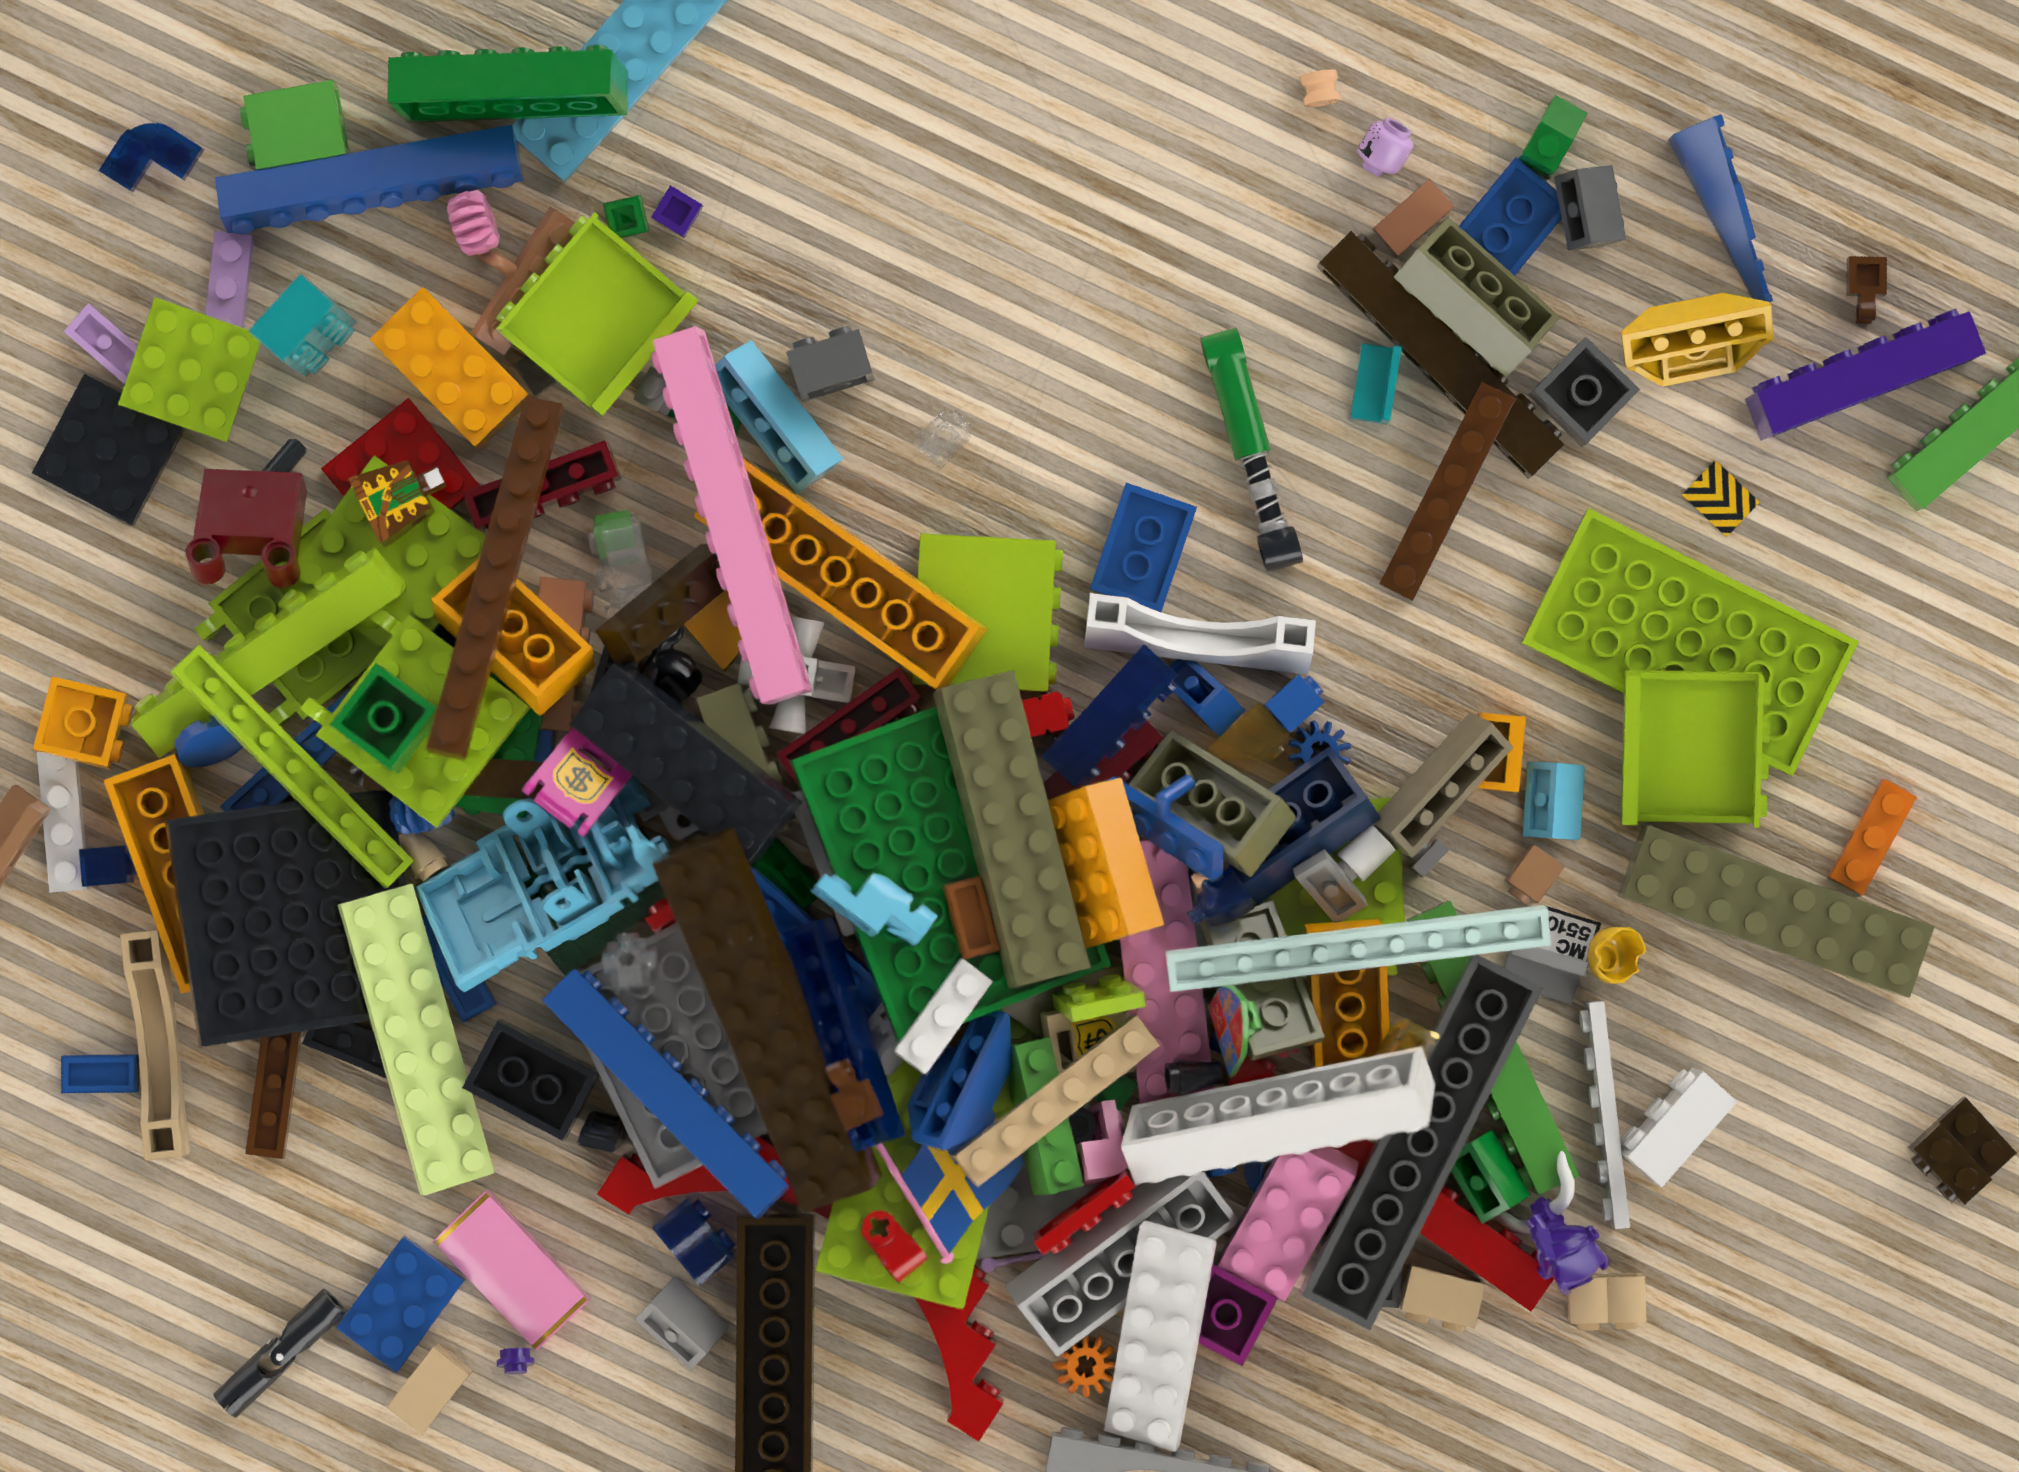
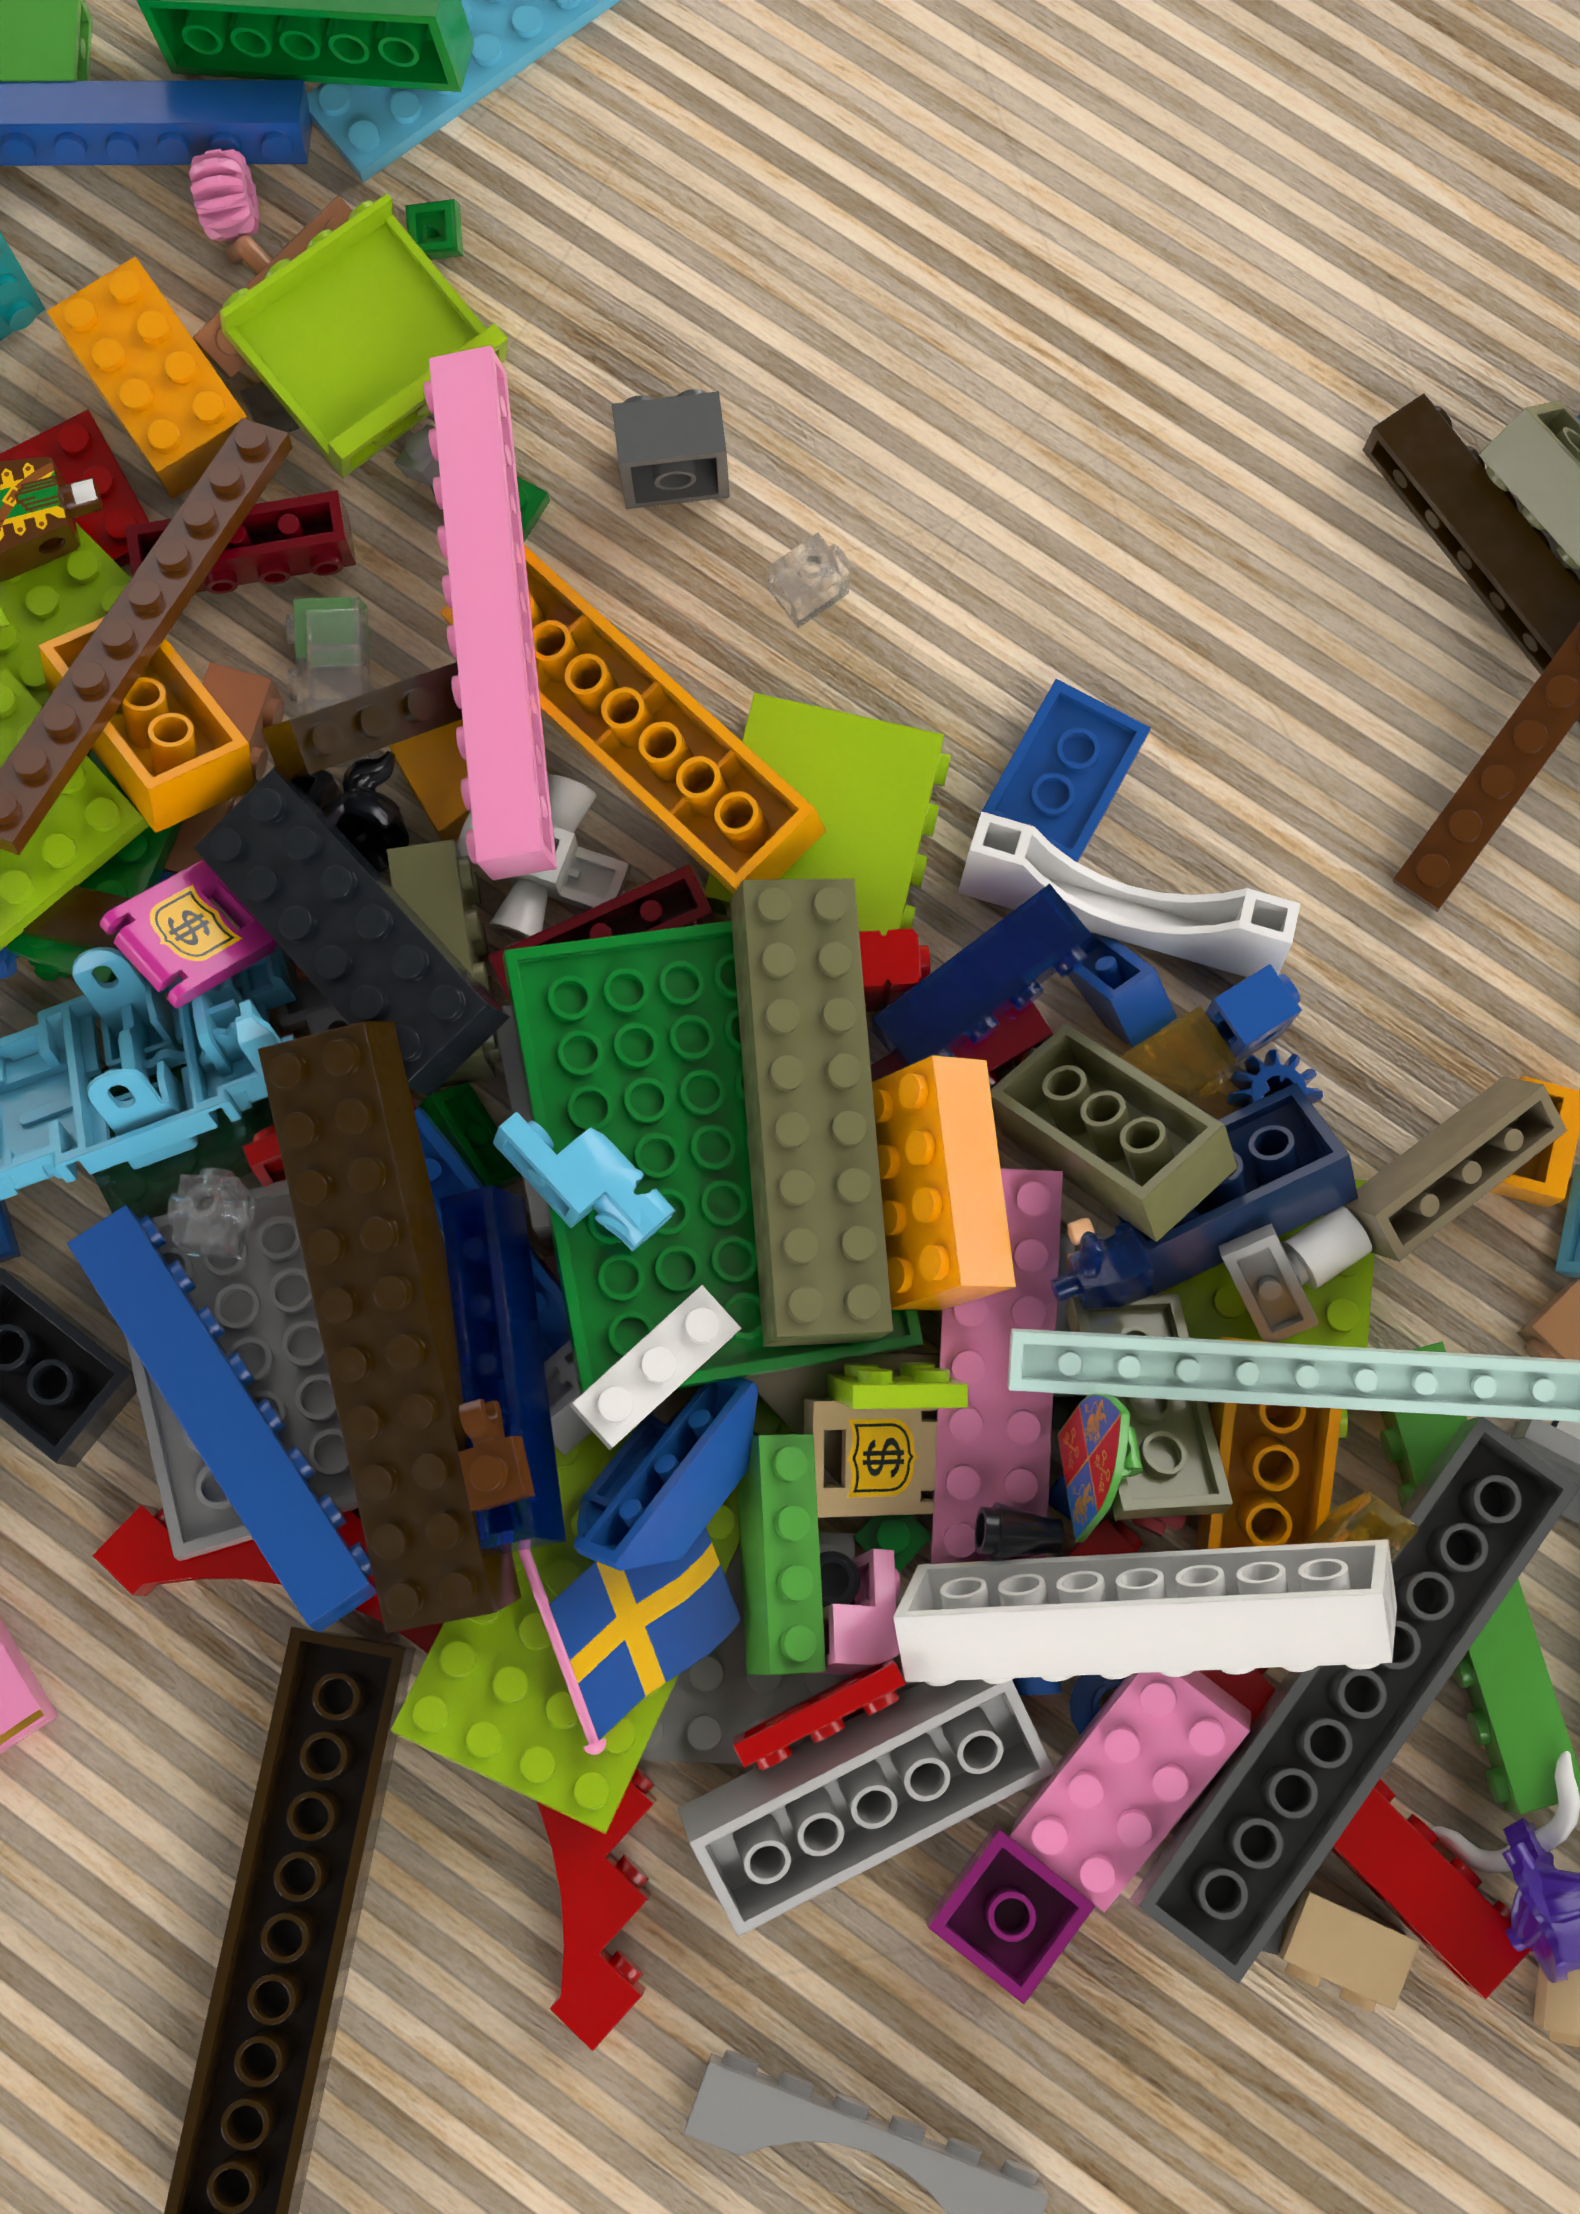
camera: 10 degrees right, 10 degrees down
(602, 1132) = (119, 1464): black slope -> none
(677, 211) = (504, 233): dark purple plate -> none
(682, 1323) = (183, 1778): light grey panel -> none
(695, 1240) = (226, 1653): clear blue brick -> none
(775, 417) = (582, 510): medium azure brick -> none
(896, 1251) = (518, 1717): red piece -> none
(971, 917) = (726, 1229): dark orange tile -> none
(990, 1263) = (662, 1771): lavender hinge -> none
(1056, 1100) = (804, 1530): tan arch -> none
(1098, 1366) = (798, 1965): orange gear -> none
(1159, 1335) = (903, 1931): white plate -> none
(1173, 834) = (1054, 1161): blue plate -> none
(1250, 445) = (1221, 543): piece -> none
(1320, 88) = (1403, 216): light nougat wheel -> none
(1375, 383) = (1426, 610): teal panel -> none
(1385, 147) = (1483, 302): lavender head -> none
(1413, 218) = (1493, 407): nougat tile -> none
(1428, 857) = (1412, 1274): light grey plate -> none
(1488, 1177) = (1447, 1775): green brick -> none

